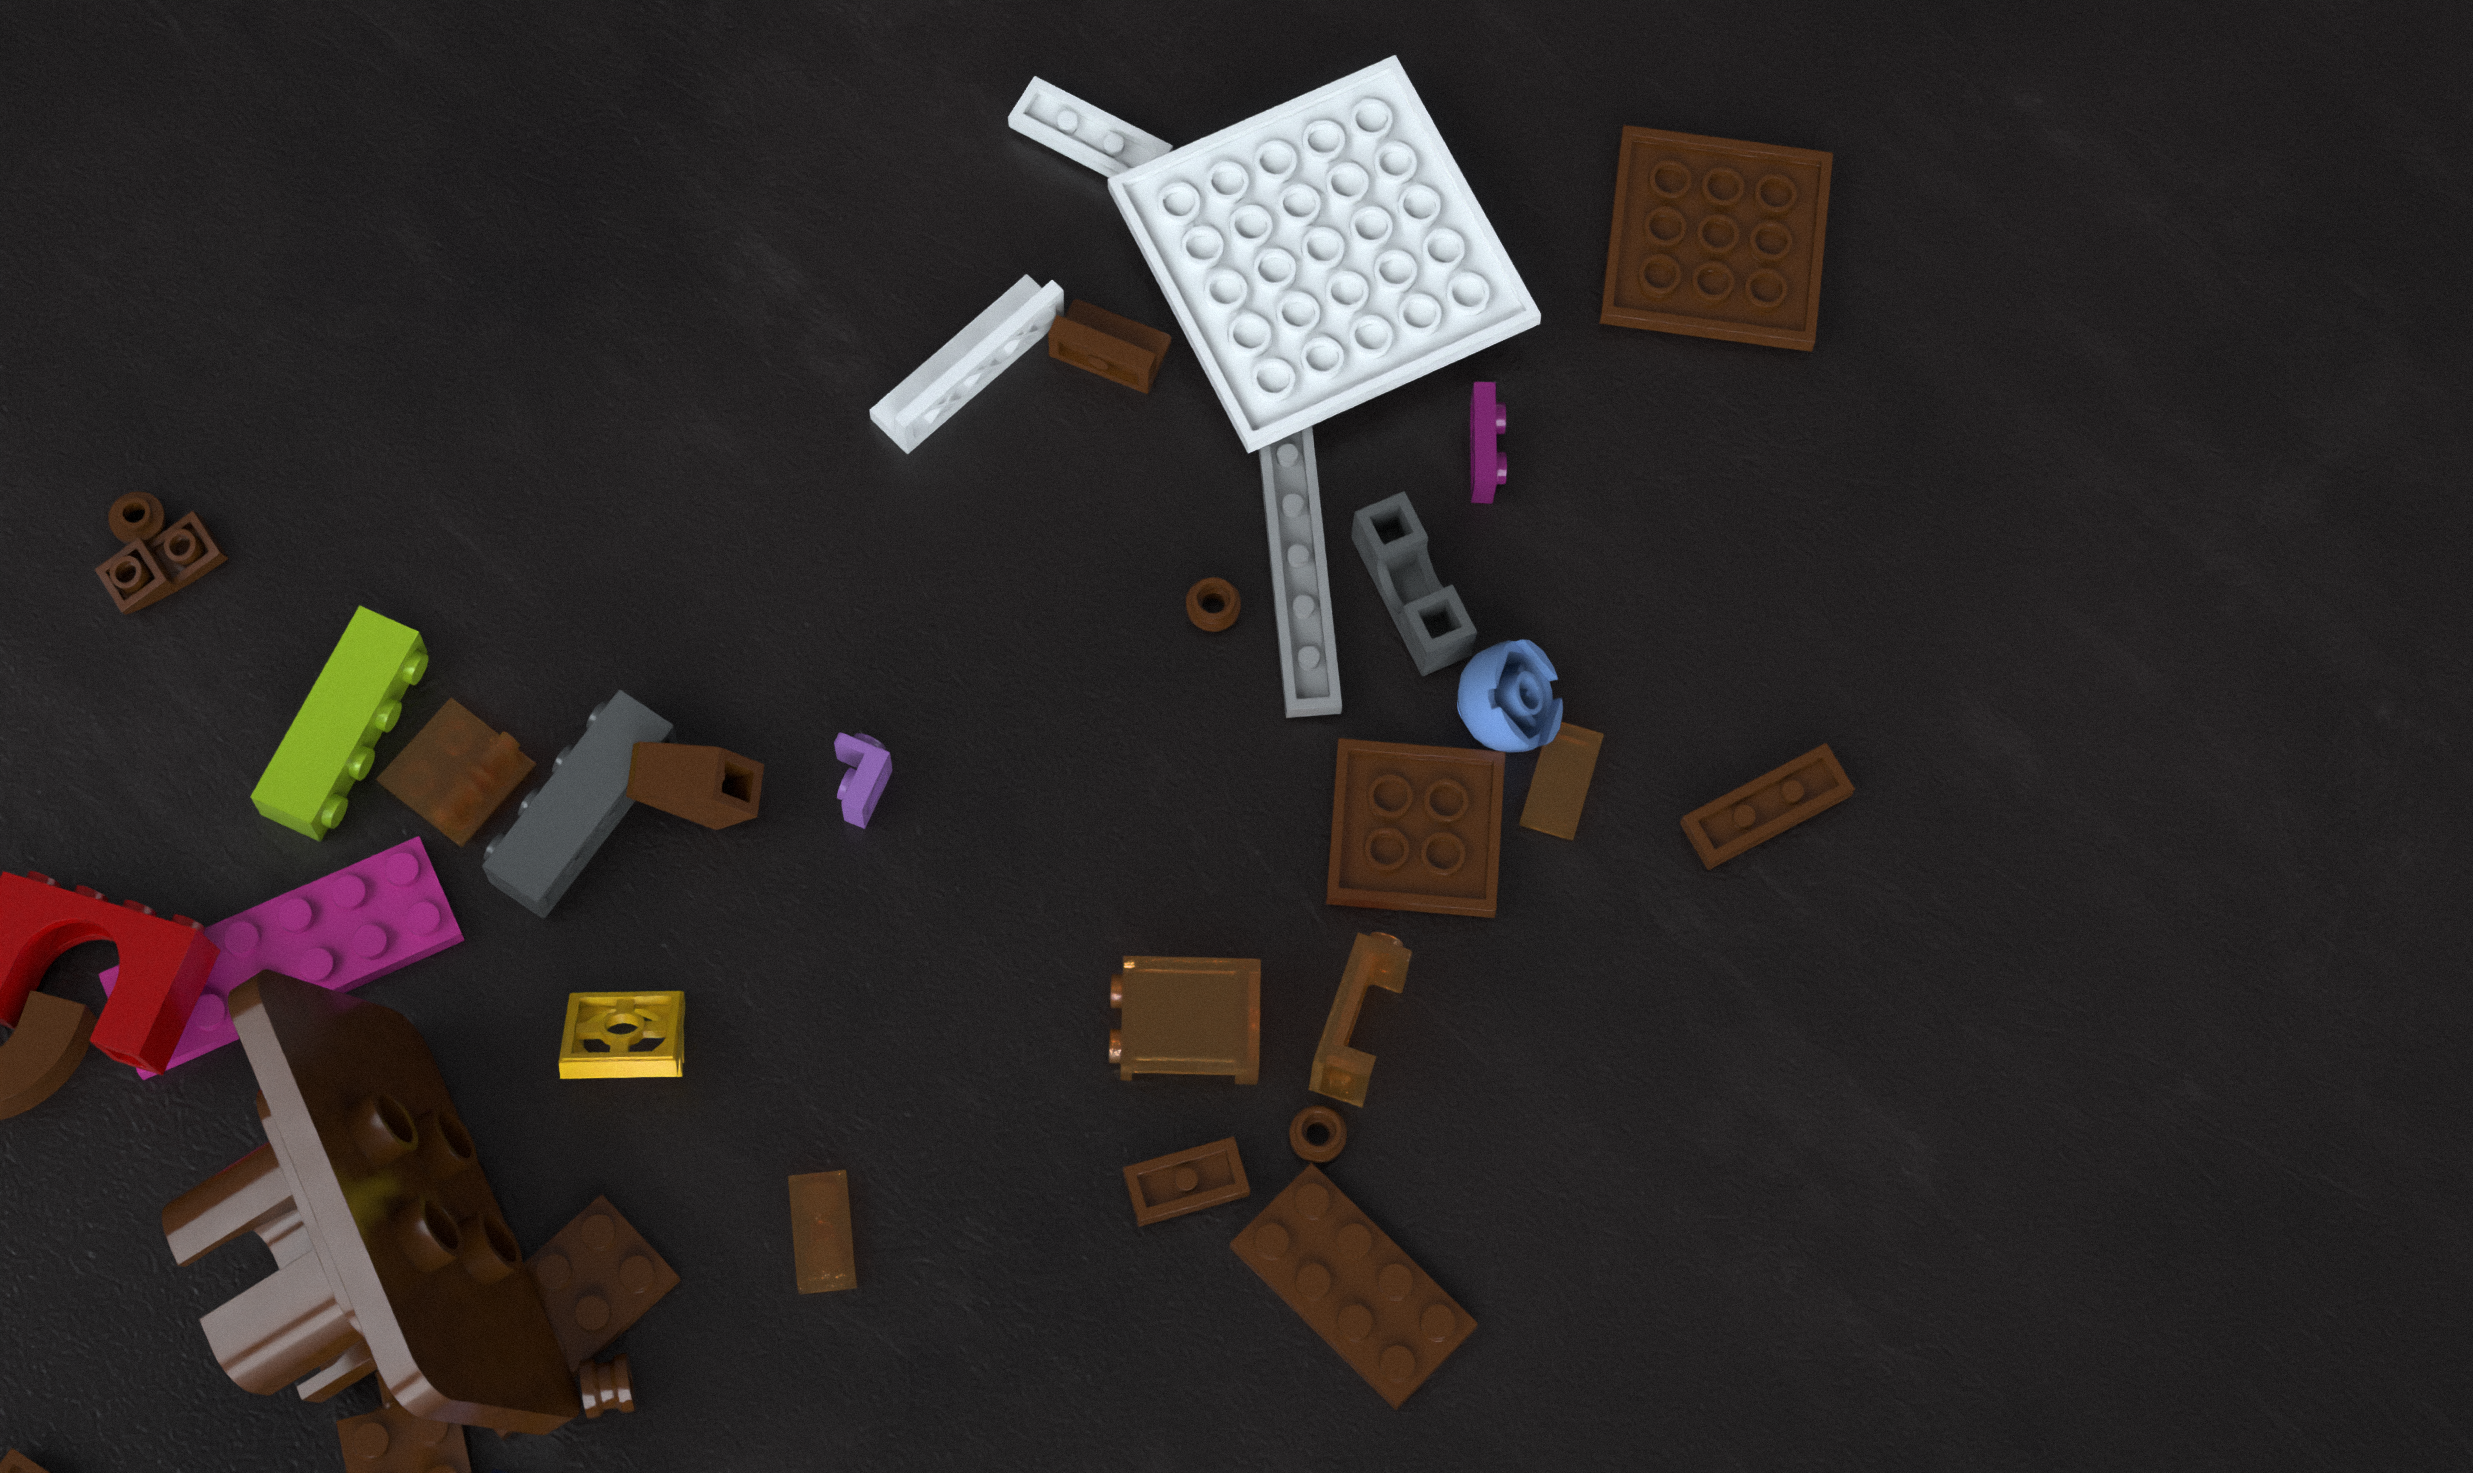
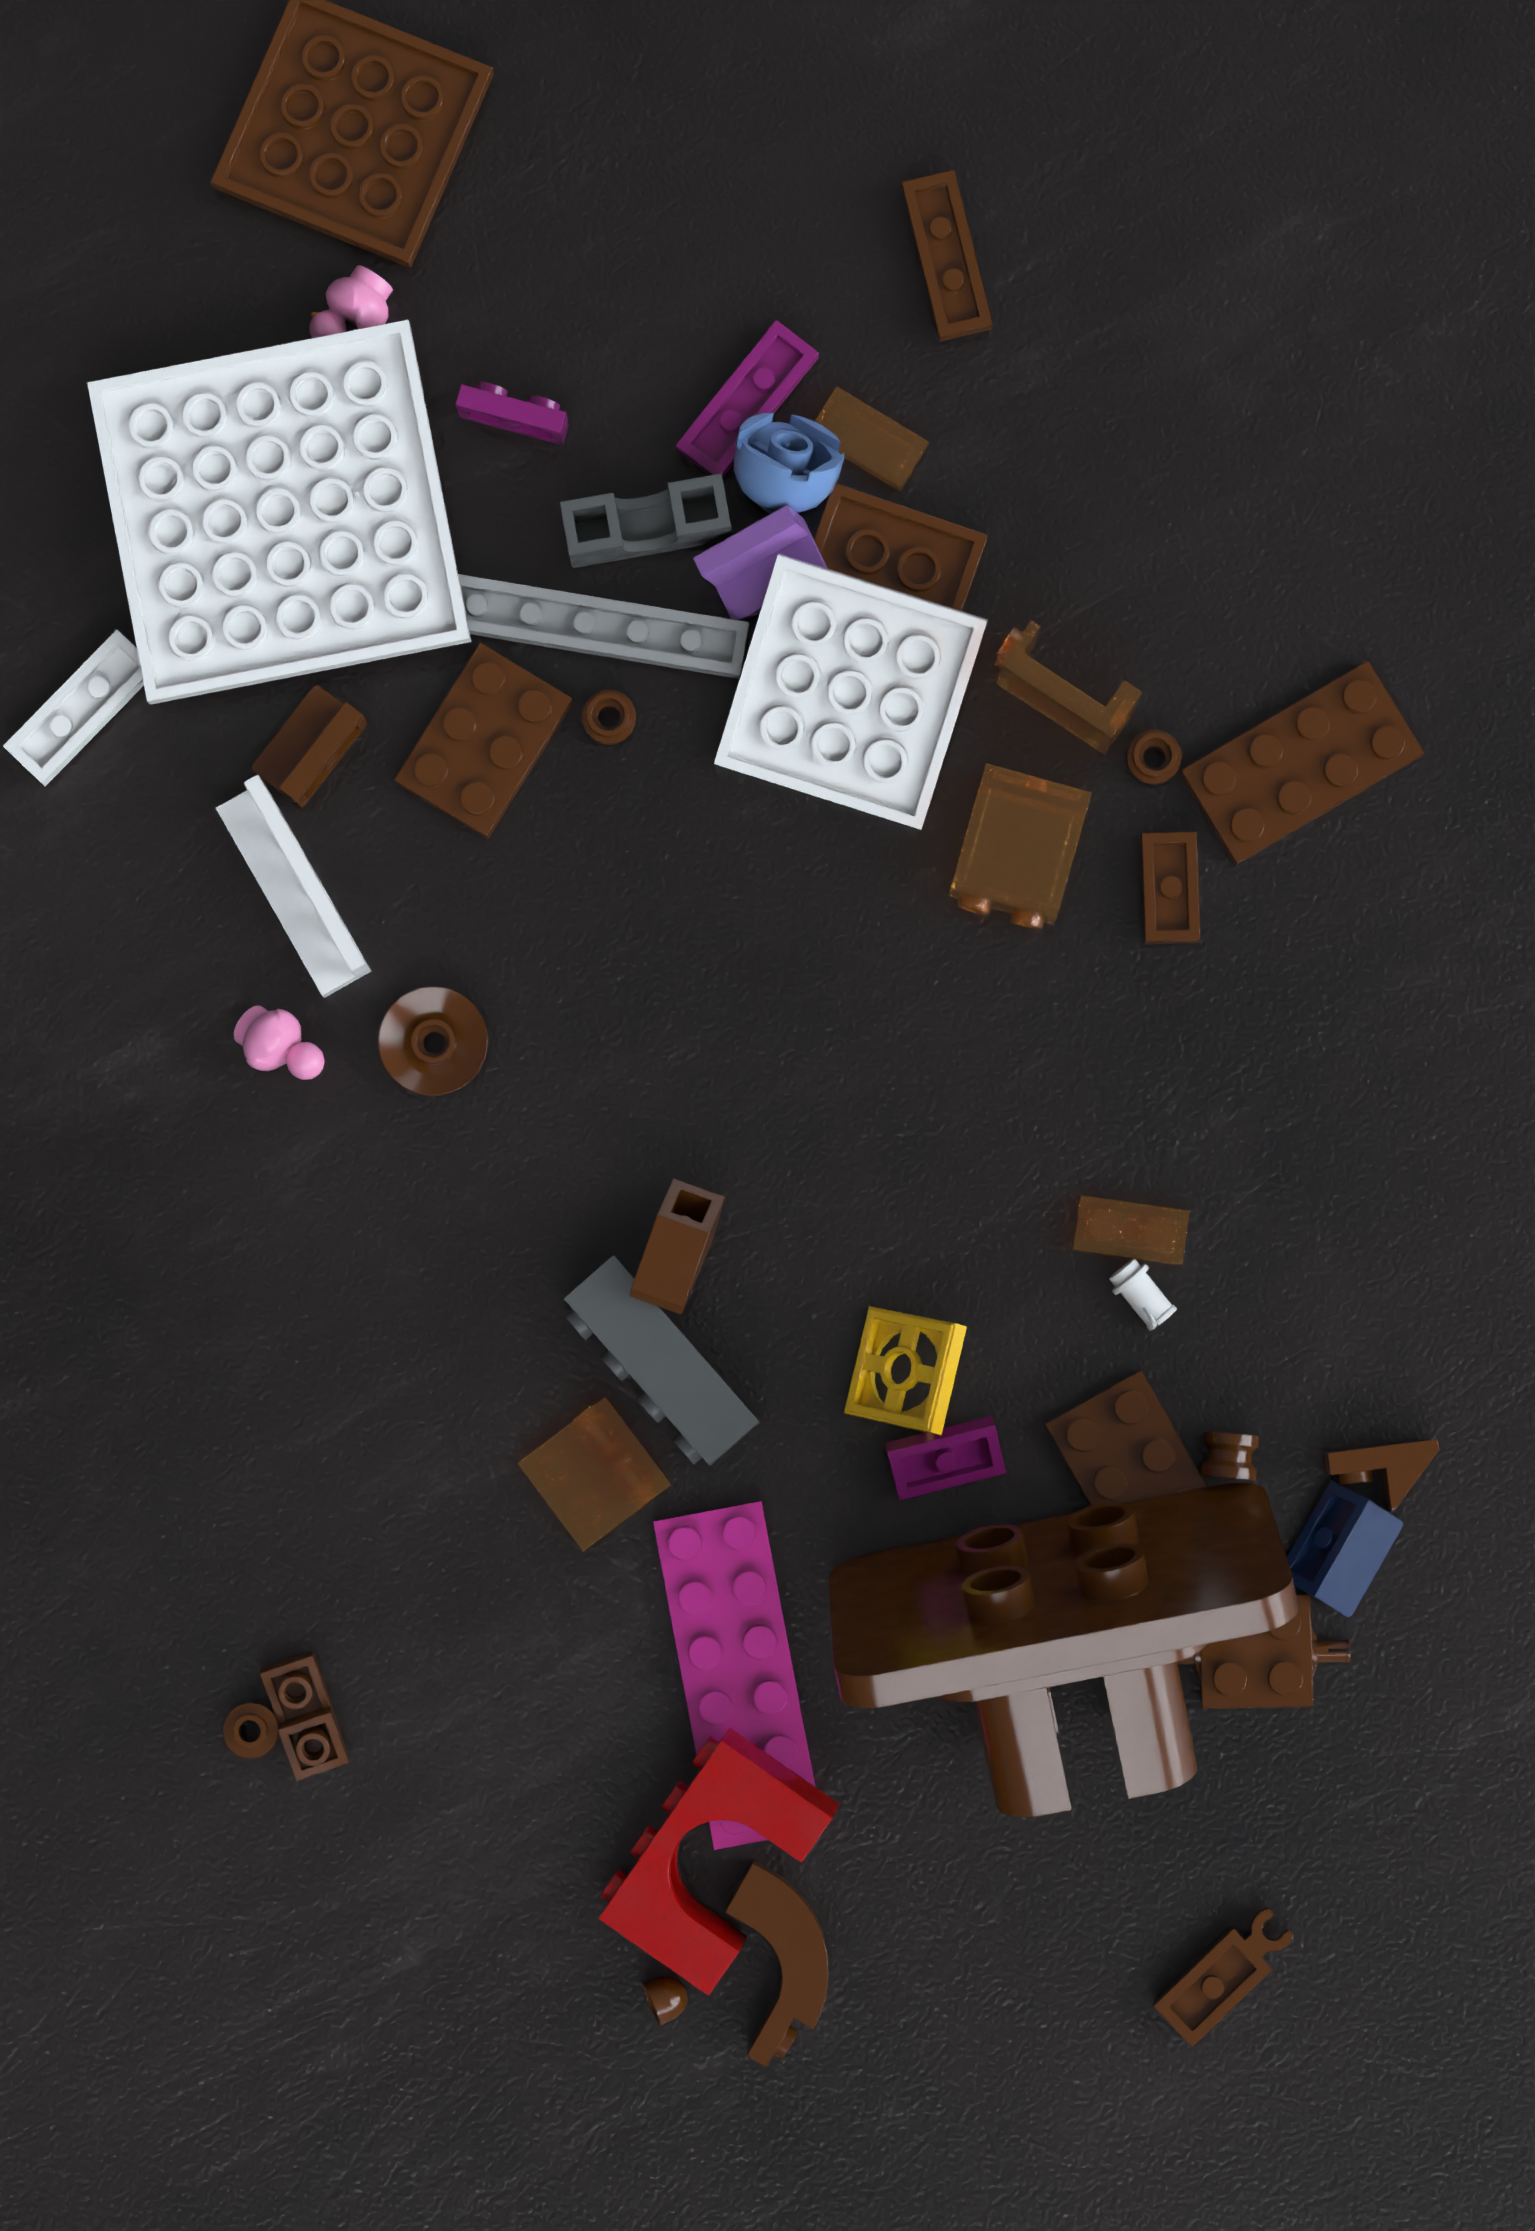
camera: 65 degrees left, 15 degrees up
(341, 724) = (520, 1572): lime brick -> none
(542, 1100) = (947, 1460): none -> magenta plate
(758, 1256) = (1142, 1293): none -> white pin
(814, 376) = (275, 1040): none -> bright pink animal
(845, 495) = (426, 1013): none -> reddish brown dish
(861, 787) = (712, 1092): medium lavender bracket -> none
(1158, 498) = (484, 740): none -> reddish brown plate
(1299, 816) = (850, 691): none -> white plate
(1405, 702) = (746, 560): none -> medium lavender panel
(1548, 278) = (355, 300): none -> bright pink animal
(1579, 658) = (753, 389): none -> magenta plate

